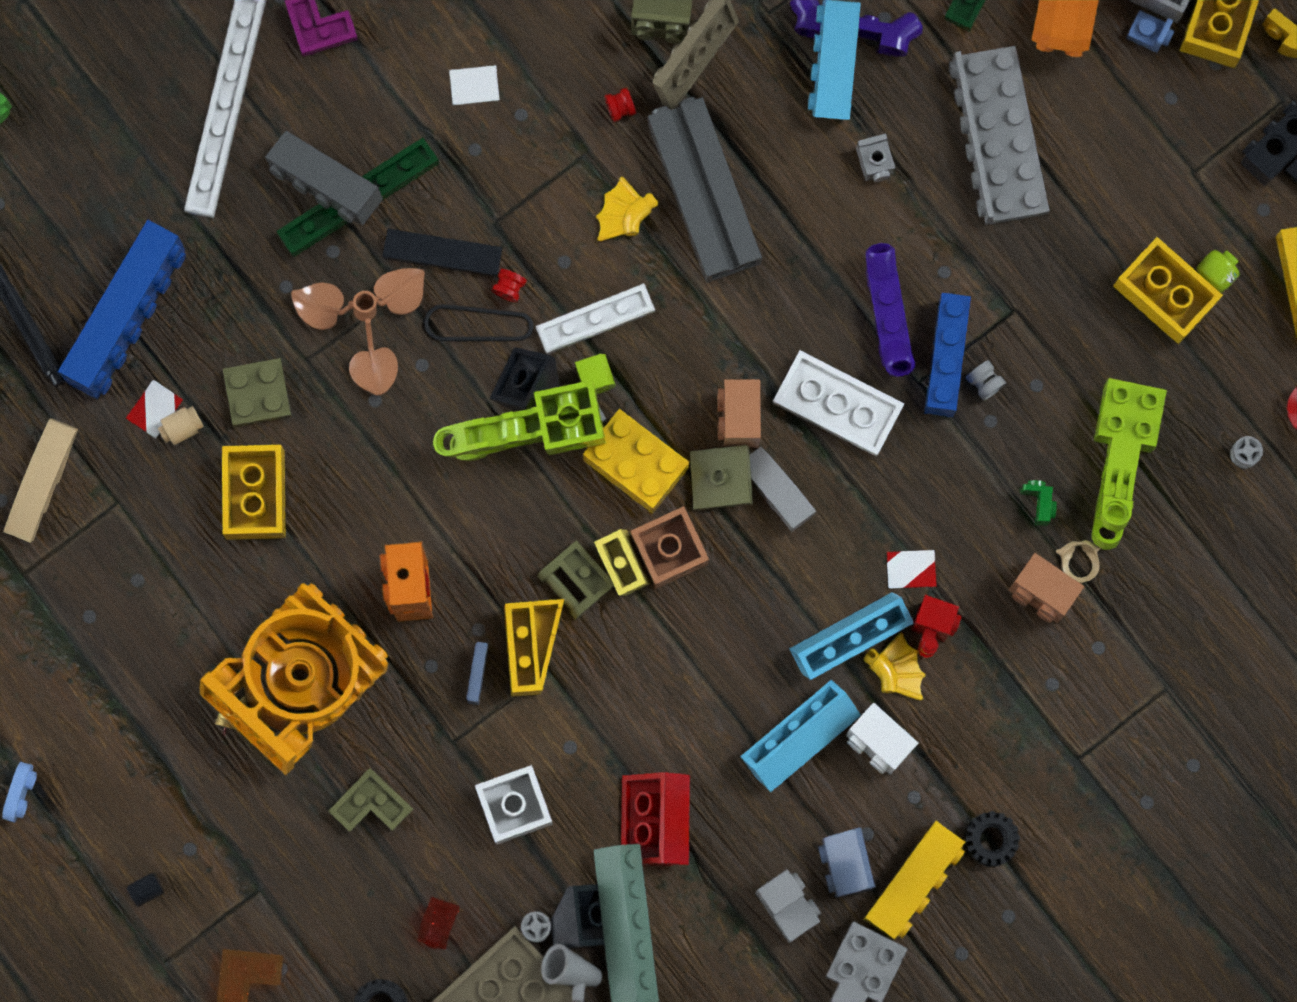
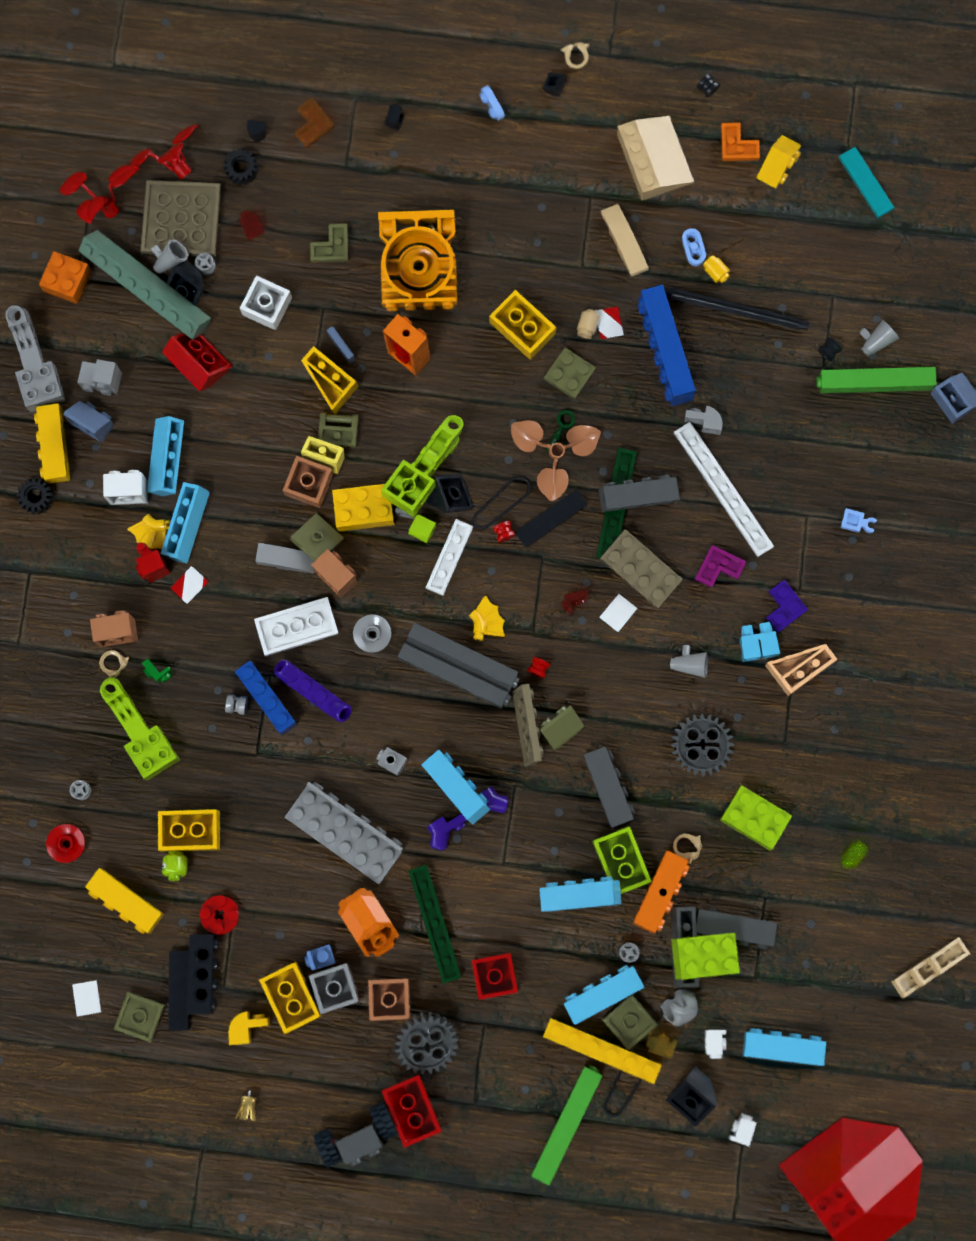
camera: 145 degrees right, 0 degrees up
(161, 188) = (710, 419): none -> light grey brick
(340, 338) = (556, 436): none -> dark green piece
(403, 102) = (641, 568): none -> dark tan plate
(504, 138) = (577, 598): none -> clear red bracket
(767, 300) = (369, 624): none -> light grey dish
(1228, 165) = (208, 914): none -> red plate

